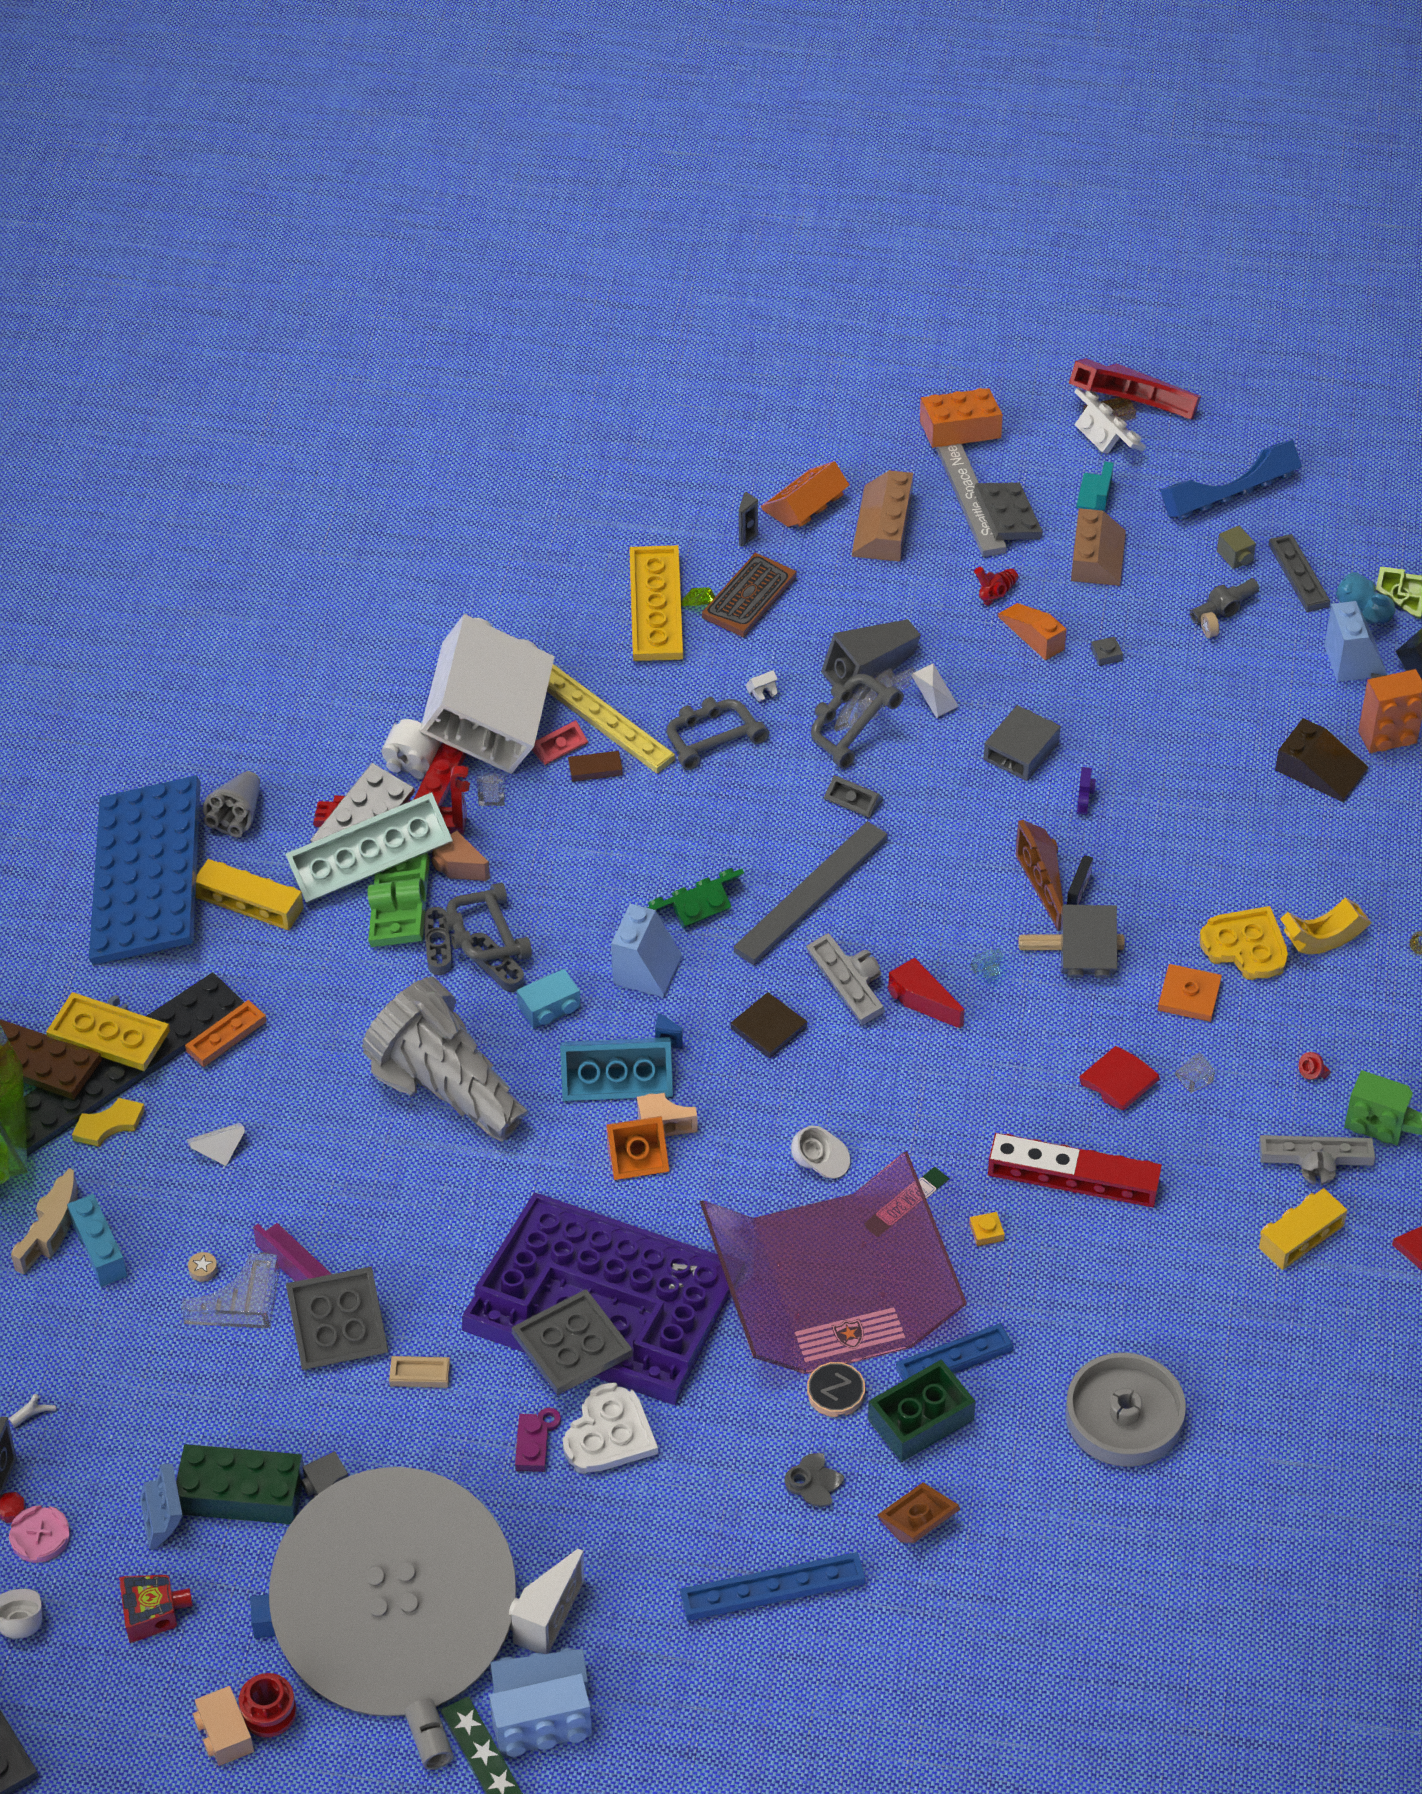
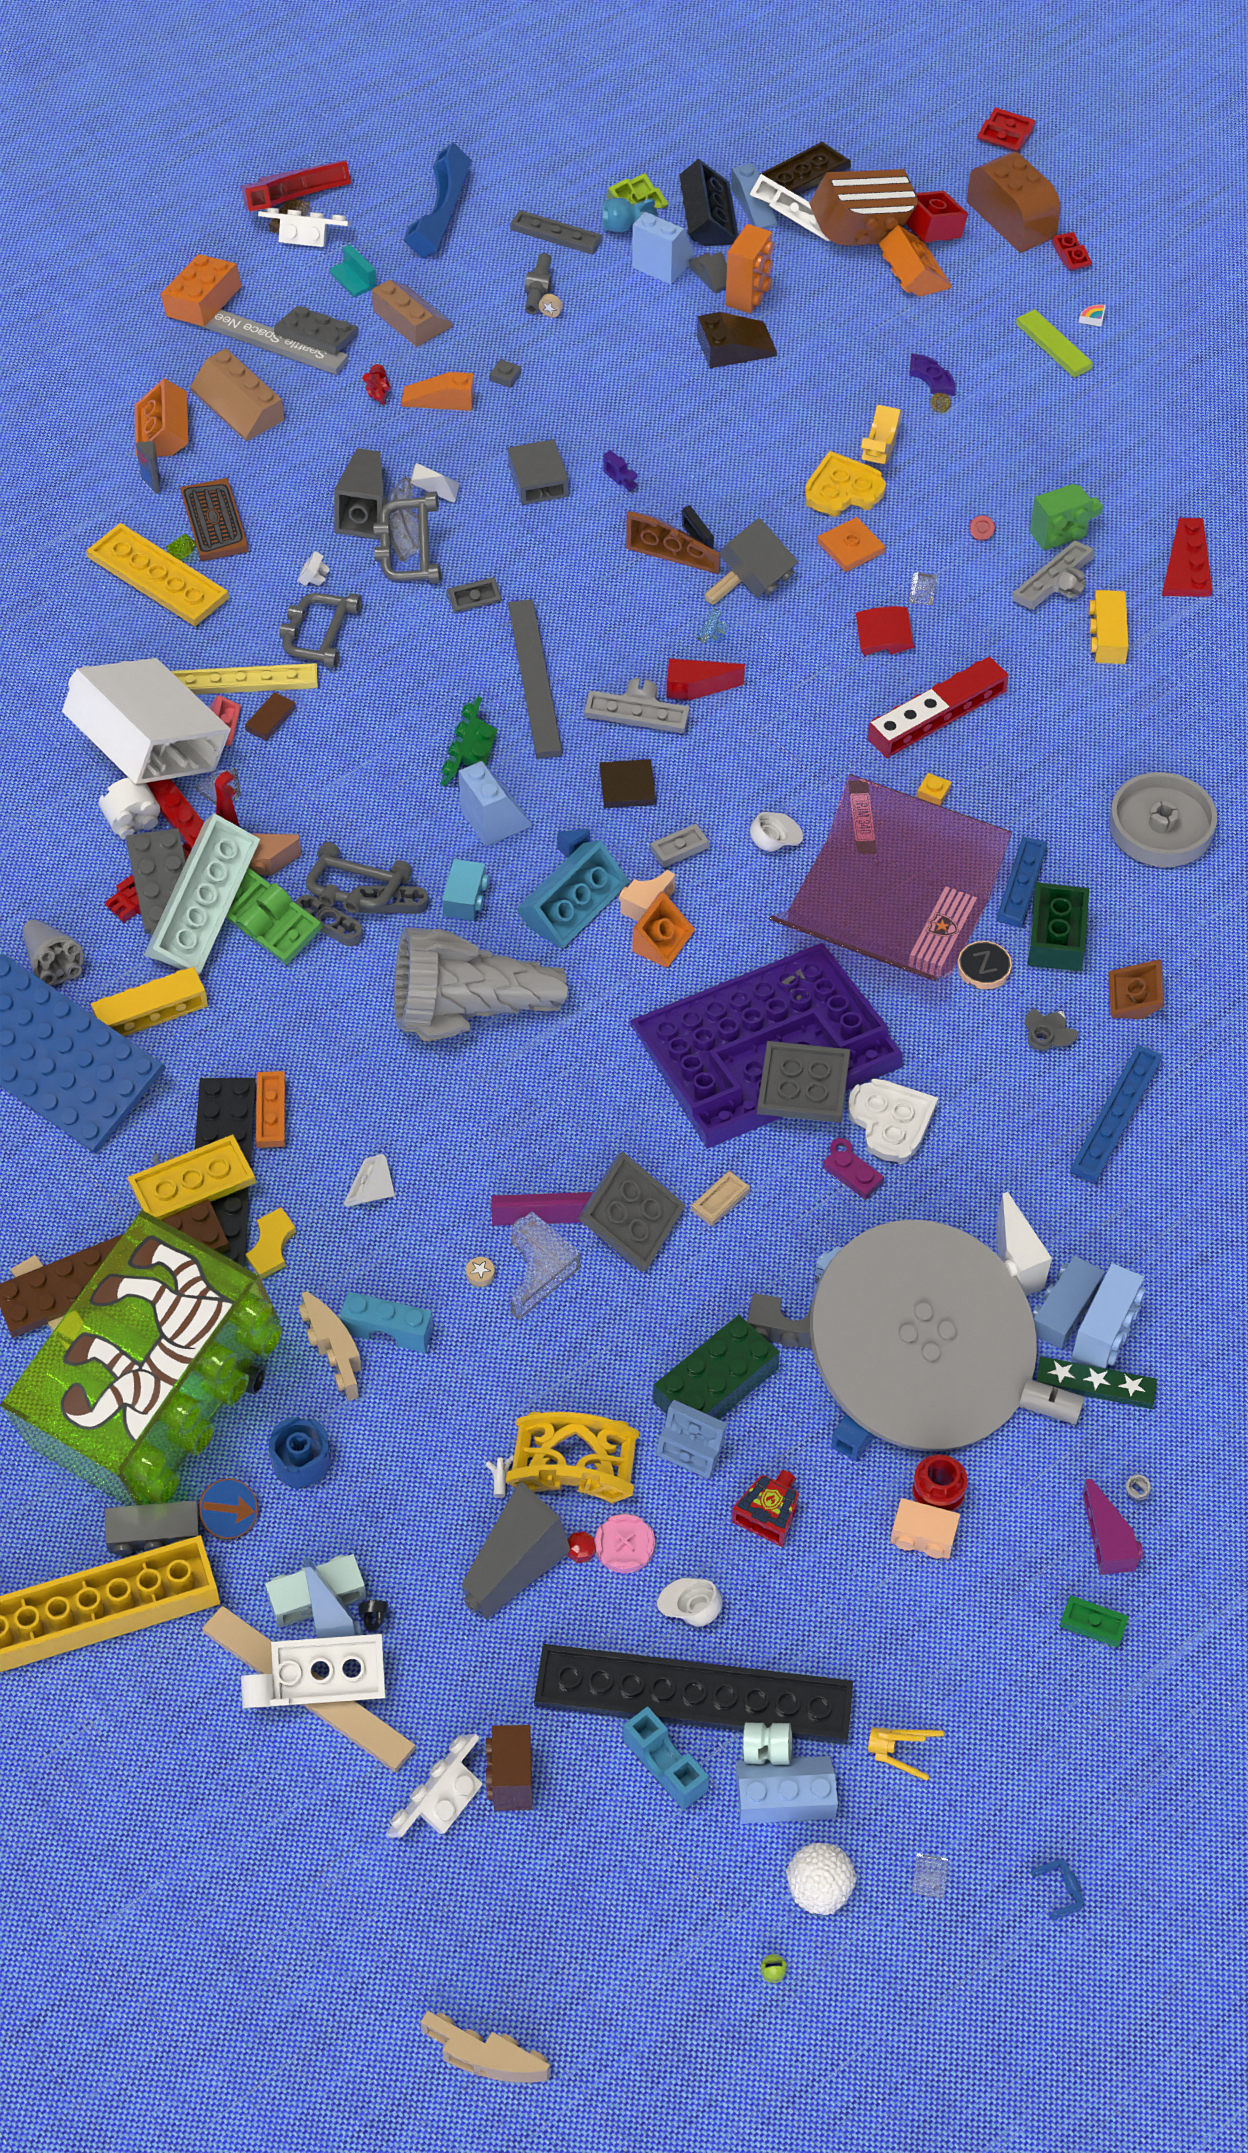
camera: 50 degrees left, 5 degrees up
(77, 1409) = (560, 1426): none -> yellow fence
(739, 1101) = (679, 845): none -> light grey plate
(1236, 547) = (499, 243): olive brick -> none

